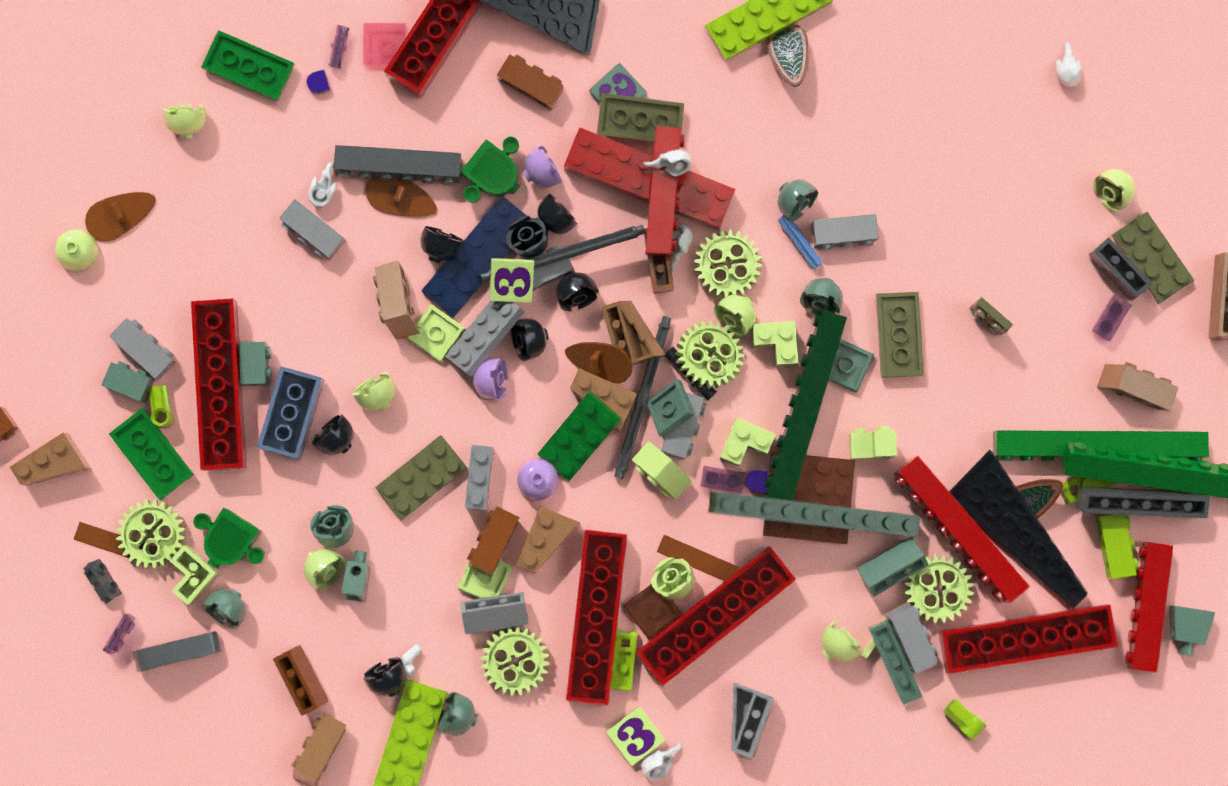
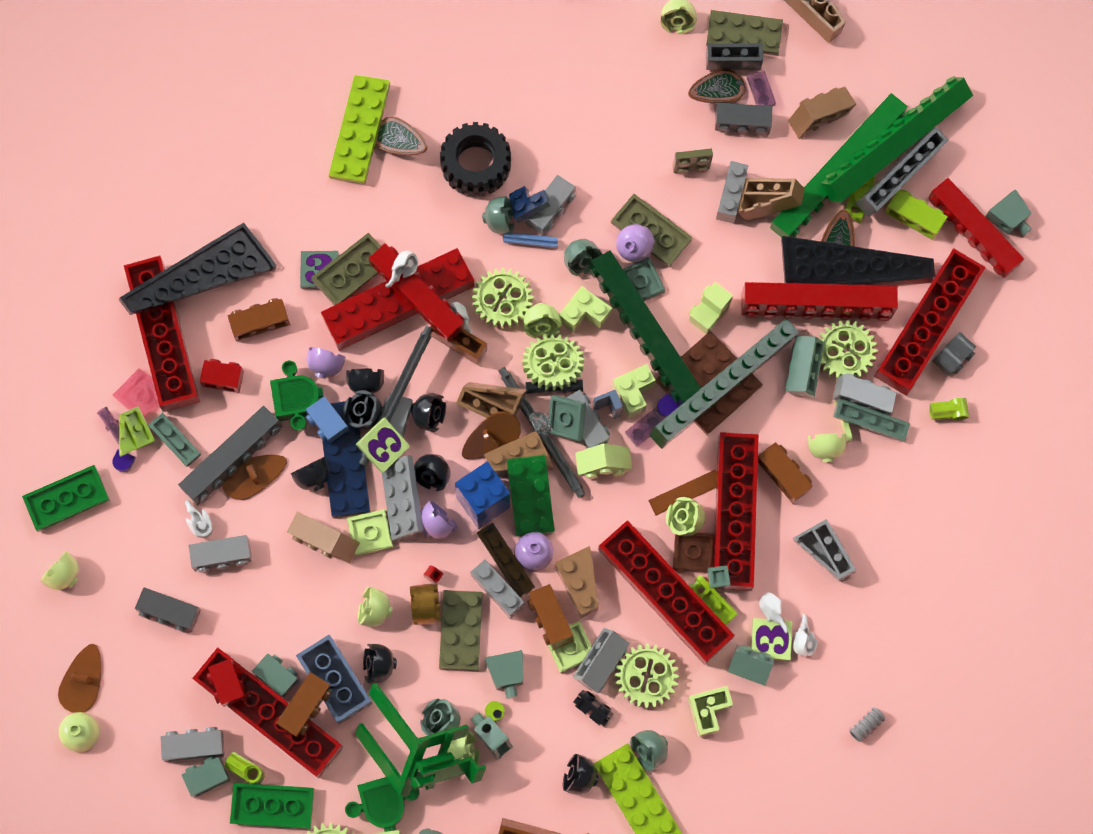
camera: 50 degrees left, 10 degrees down
(208, 332) = (226, 682): none -> red brick
(230, 230) = (167, 610): none -> dark grey brick
(245, 410) = (304, 705): none -> dark orange brick
(267, 547) = (431, 769): none -> green piece
(347, 68) = (133, 431): none -> lime wing
(371, 107) = (174, 439): none -> sand green plate
(380, 562) = (494, 710): none -> lime tile
(408, 658) = (579, 746): white arm -> none
(413, 431) = (425, 604): none -> pearl gold brick
(419, 545) = (506, 671): none -> sand green torso
(445, 411) = (430, 571): none -> red piece
(453, 649) = (589, 702): none -> black hinge
(456, 95) = (221, 375): none -> red brick
(493, 215) = (327, 420): none -> medium blue brick
(509, 463) = (505, 560): none -> dark brown plate
(531, 729) = (704, 707): none -> yellowish green brick
(540, 398) = (482, 495): none -> blue brick
(597, 738) = (751, 664): none -> sand green brick
(643, 651) = (718, 577): none -> sand green plate
(647, 390) = (540, 422): none -> clear plate
(660, 715) = (771, 608): none -> white piece
(718, 435) = (609, 399): none -> sand blue panel
(786, 627) = (785, 472): none -> dark orange brick
(824, 213) = (525, 205): none -> dark blue plate
(835, 107) = (475, 136): none -> black tyre
(874, 331) = (635, 243): none -> lavender cylinder
(994, 373) = (732, 192): none -> light grey brick
(1015, 408) = (769, 196): none -> medium nougat wedge
(1018, 683) = (954, 353): none -> dark grey brick
(1070, 325) = (743, 118): none -> dark grey brick
(1079, 280) = (718, 87): none -> shield

